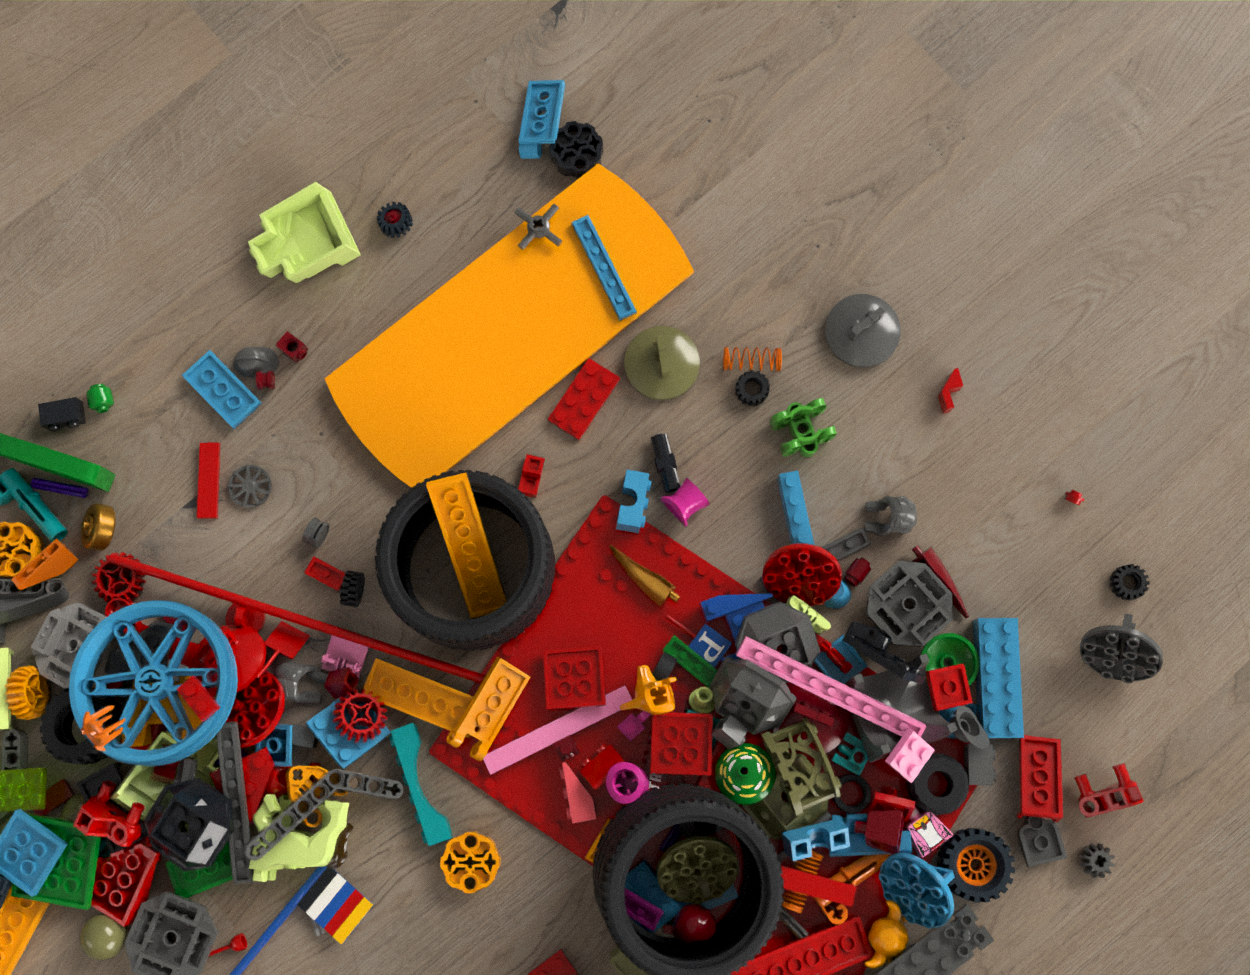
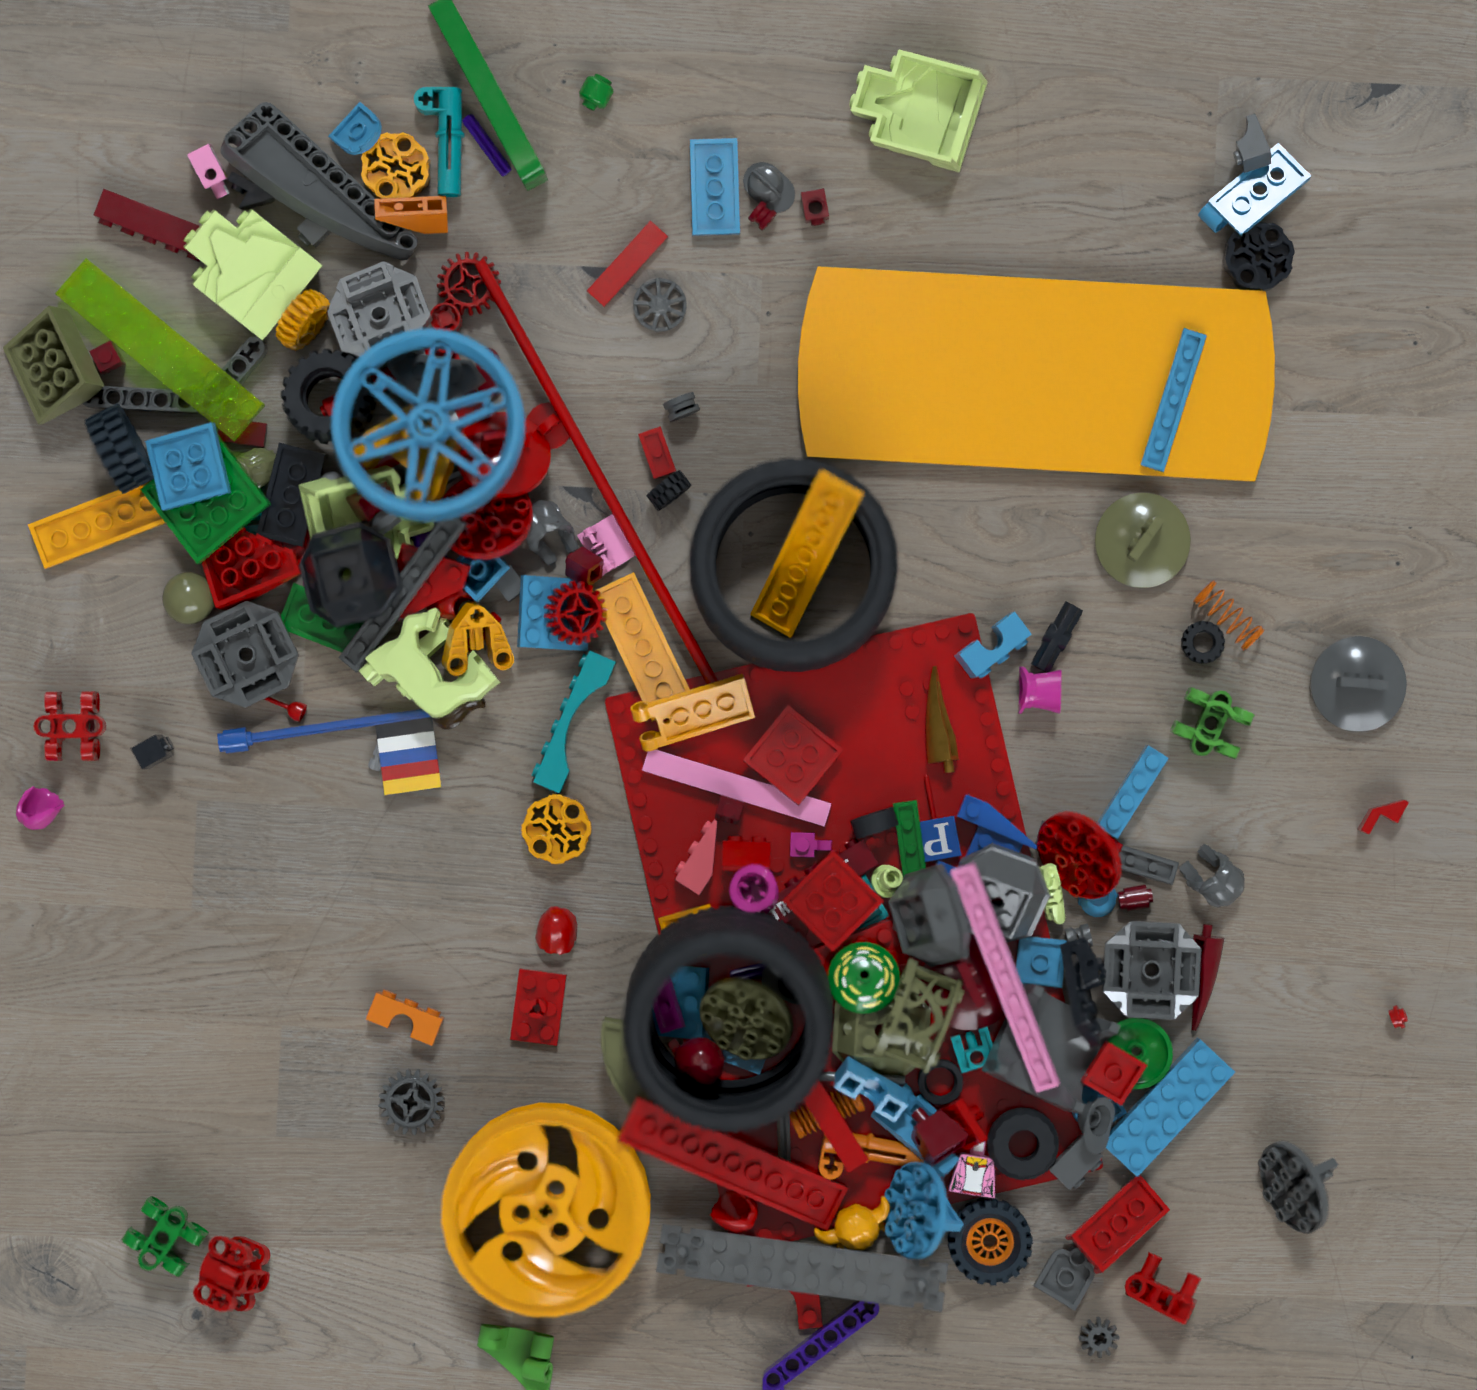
camera: 45 degrees right, 10 degrees up
(62, 414) = (548, 75): black brick -> none
(96, 819) = (274, 497): red piece -> none
(98, 527) = (490, 218): pearl gold wheel -> none
(101, 735) = (354, 420): orange piece -> none
(198, 698) = (457, 480): red plate -> none
(286, 641) = (567, 481): red piece -> none
(313, 802) = (469, 654): dark grey beam -> none
(394, 219) = (1022, 168): black wheel -> none
(517, 92) = (1252, 150): none -> dark grey arch
(529, 926) = (556, 930): none -> red hair
(531, 475) = (923, 534): red slope -> none
(538, 221) = (1154, 298): dark grey bar -> none
(583, 399) = (1038, 506): red plate -> none
(651, 695) = (845, 834): light orange piece -> none
(730, 732) = (884, 930): dark grey brick -> none
(835, 657) = (1040, 953): red axle -> none
(842, 628) = (1082, 931): none -> dark grey wheel
(909, 755) = (1020, 1096): bright pink plate -> none
(1117, 582) = (1357, 1130): black tyre -> none

